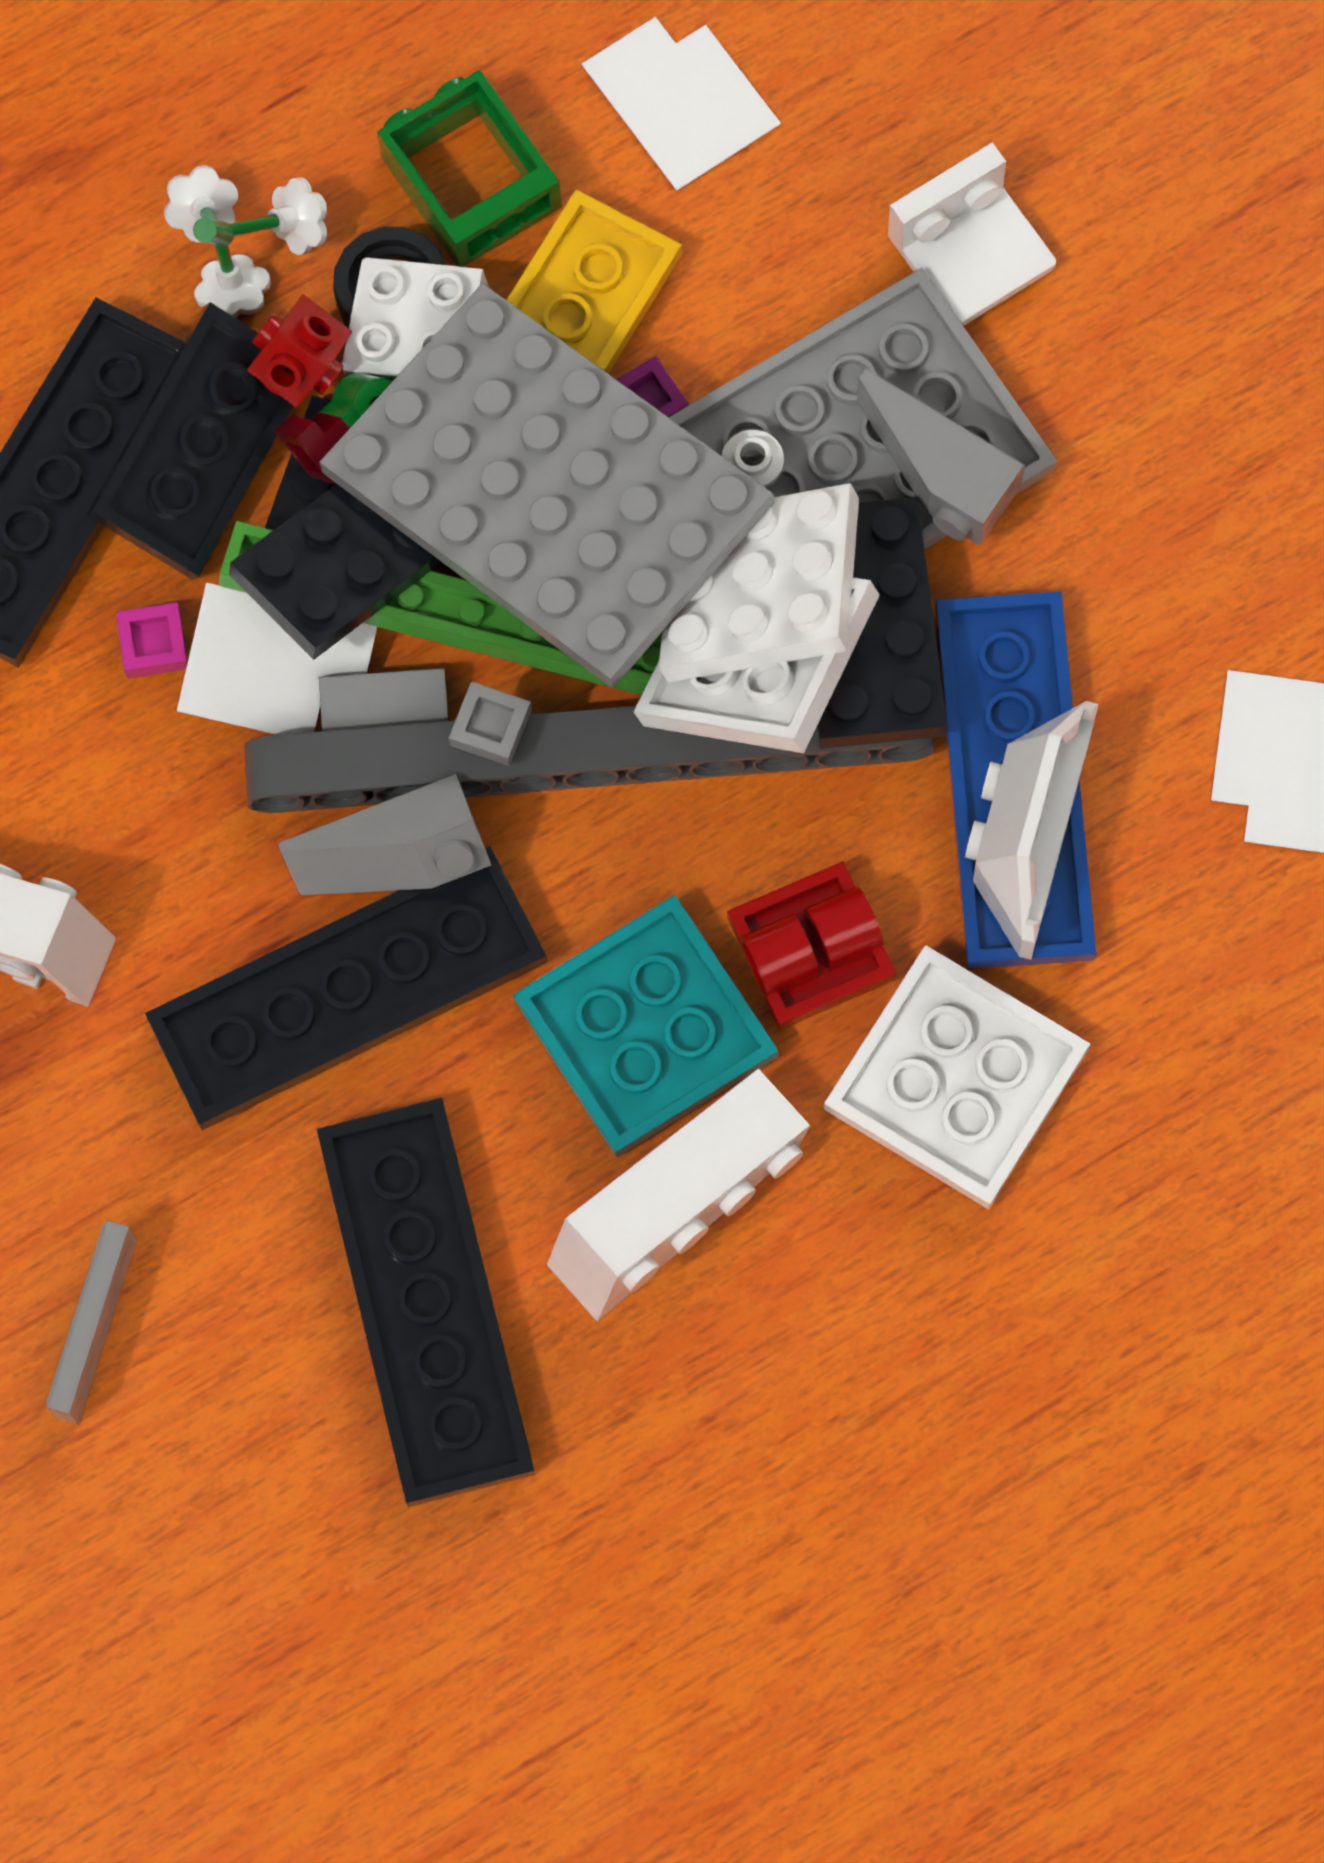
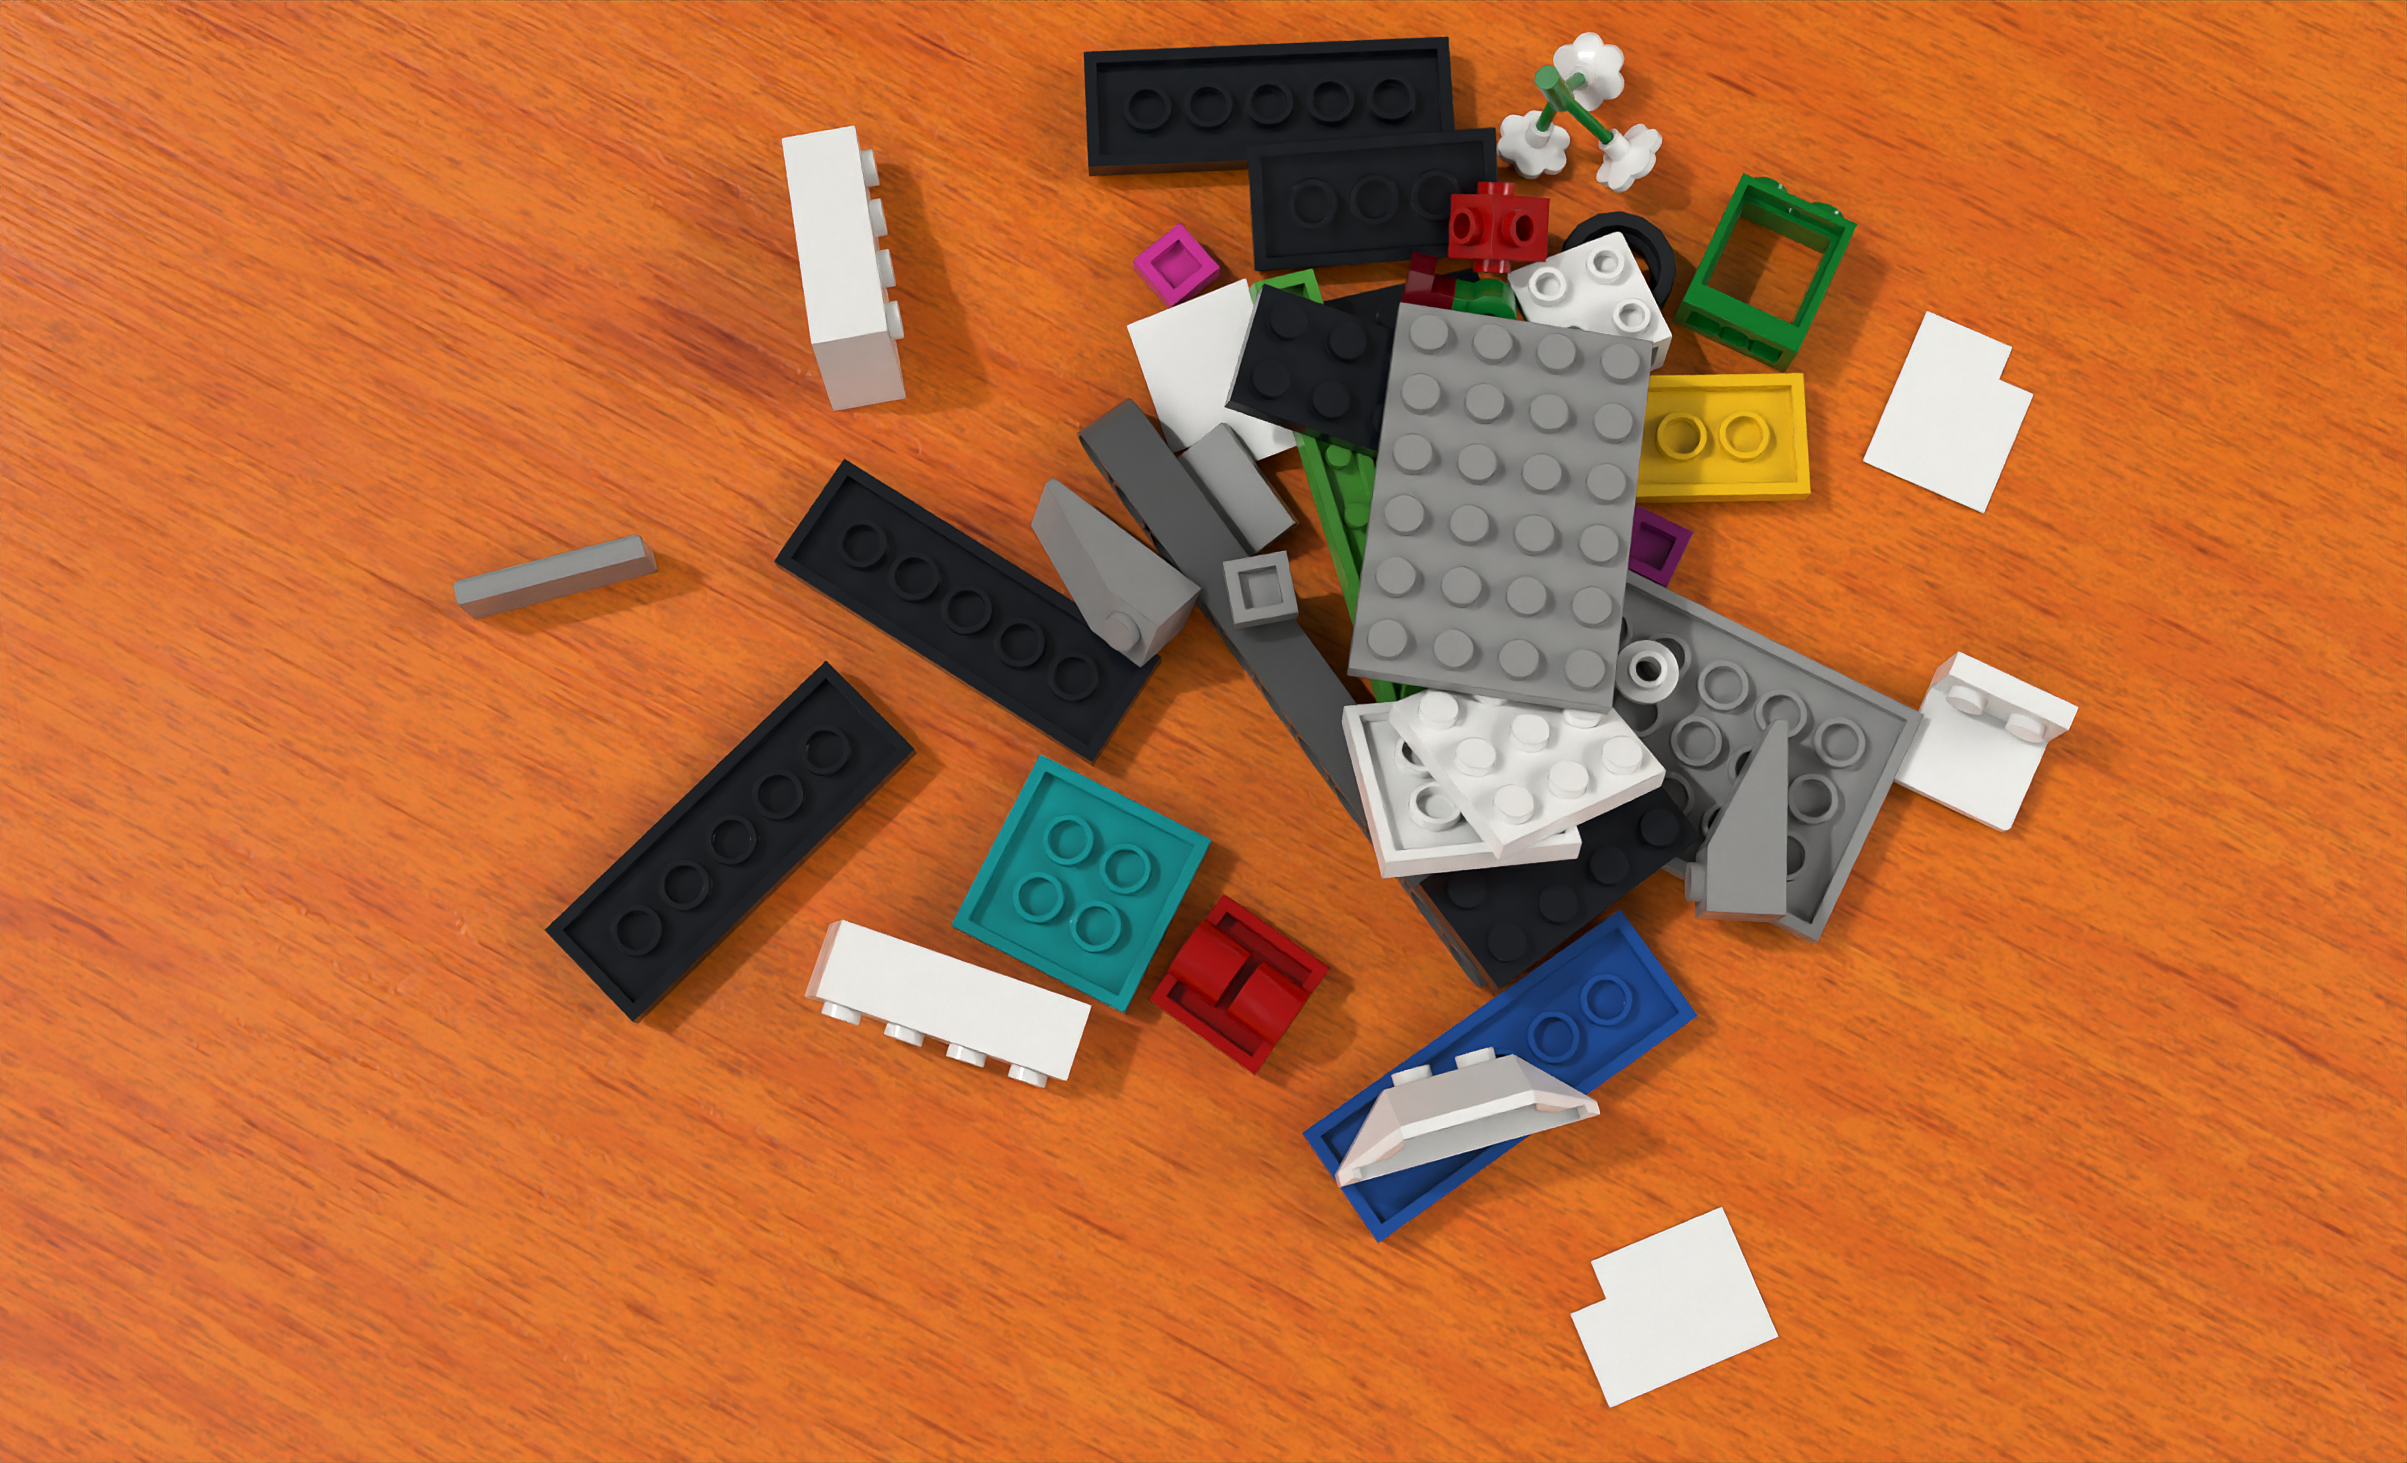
camera: 55 degrees right, 5 degrees up
(956, 1077) = (1195, 1183): white plate -> none

